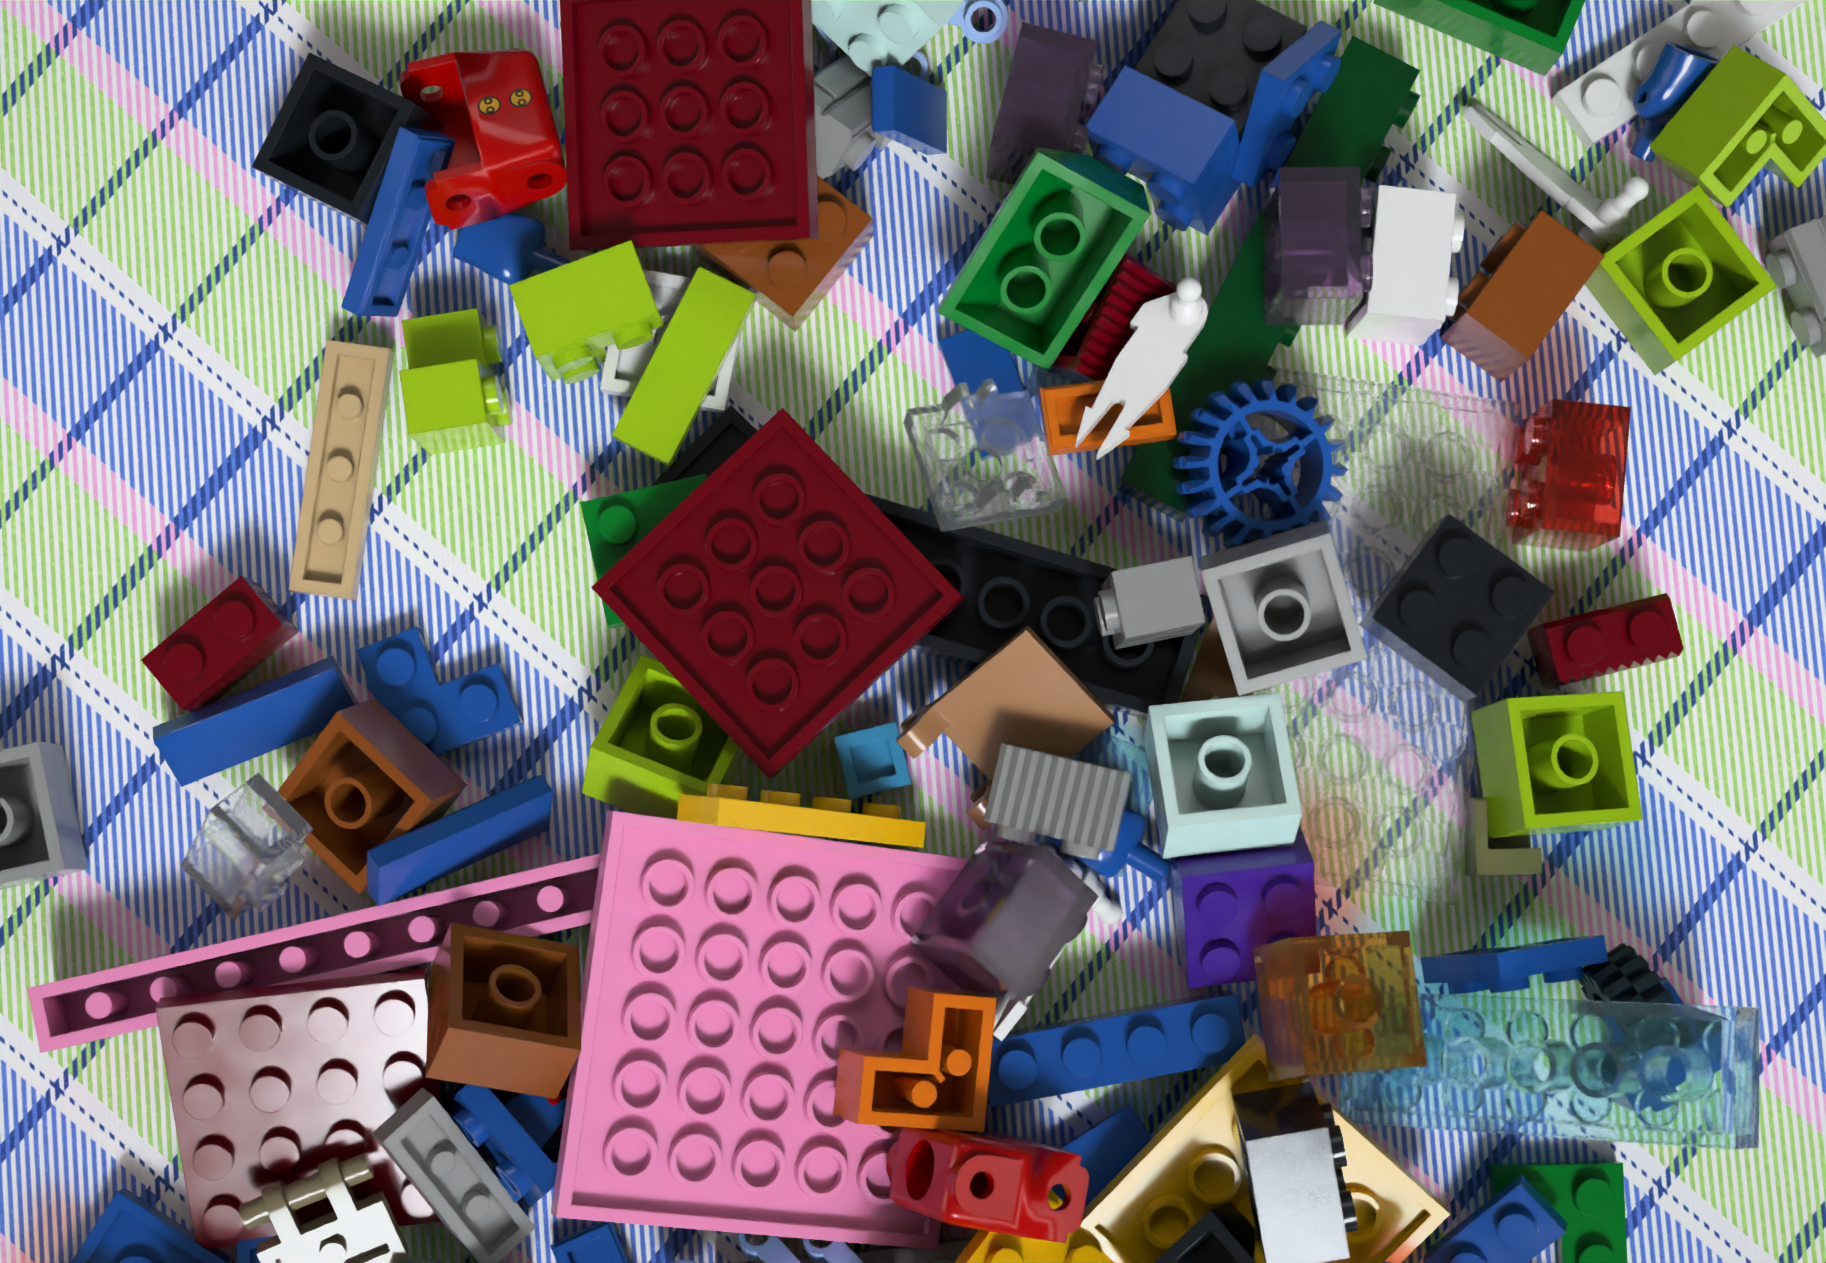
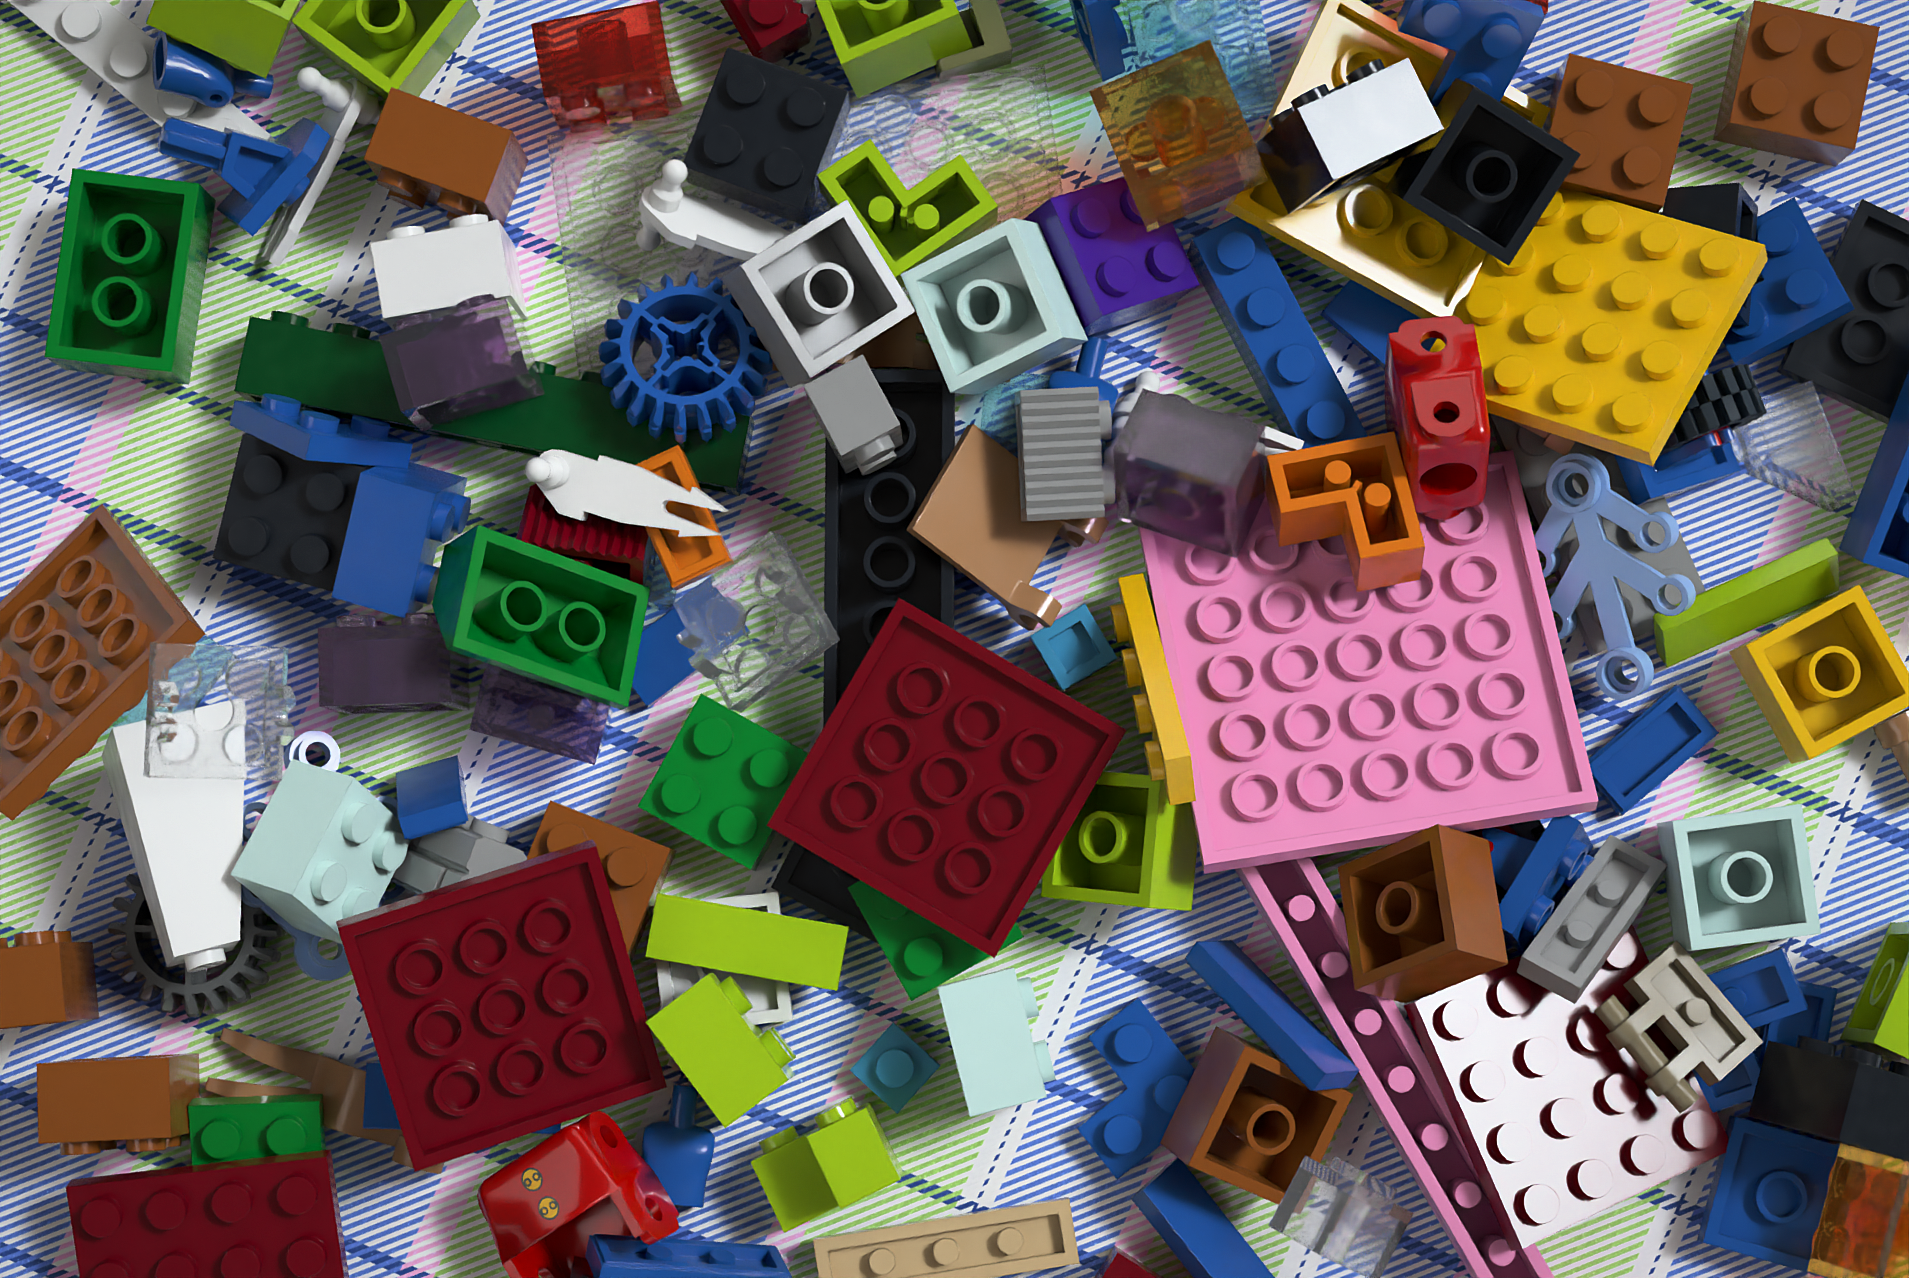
camera: 100 degrees left, 0 degrees up
(517, 568) = (994, 1041): none -> light aqua brick
(527, 474) = (895, 1067): none -> dark azure plate
(843, 388) = (724, 781): none -> green brick
(951, 232) = (540, 715): none -> clear purple brick
(1327, 718) = (912, 222): none -> lime brick
(1385, 527) = (692, 220): none -> white piece
(1565, 112) = (257, 169): none -> blue piece

